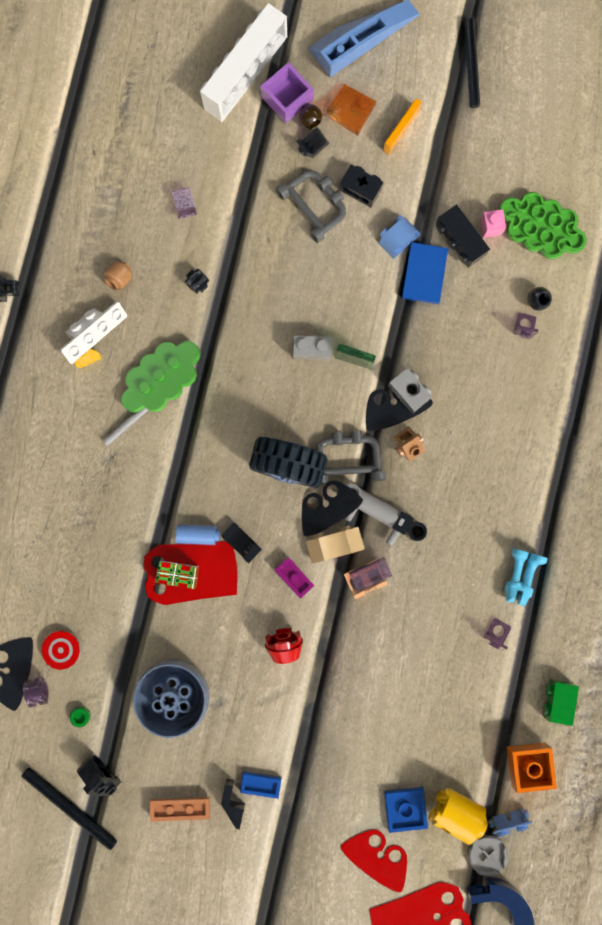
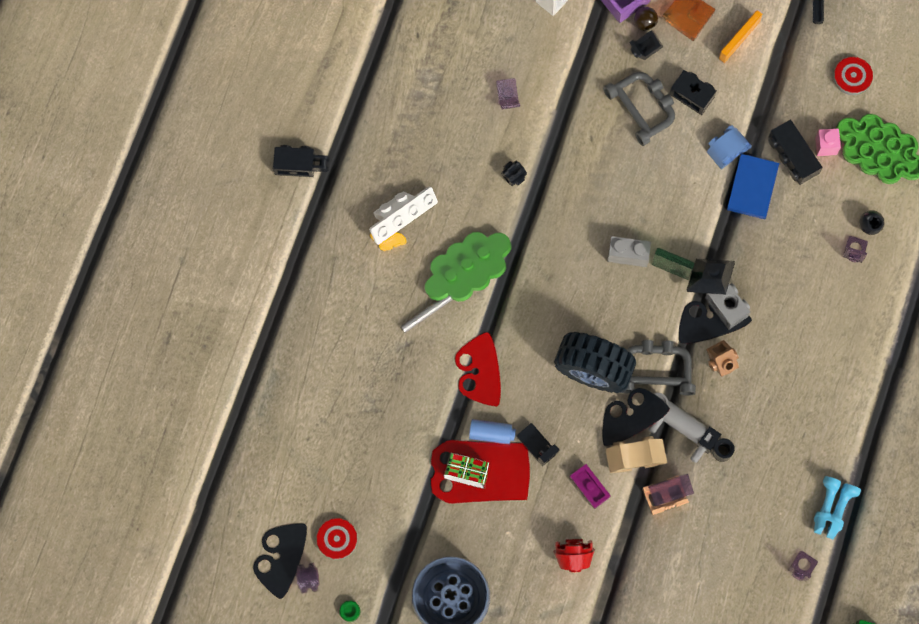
camera: 10 degrees right, 10 degrees down
(118, 275) = (432, 160): medium nougat head -> none
(186, 465) = (485, 360): none -> red piece
(392, 365) = (710, 276): none -> black slope
(511, 156) = (853, 75): none -> red tile

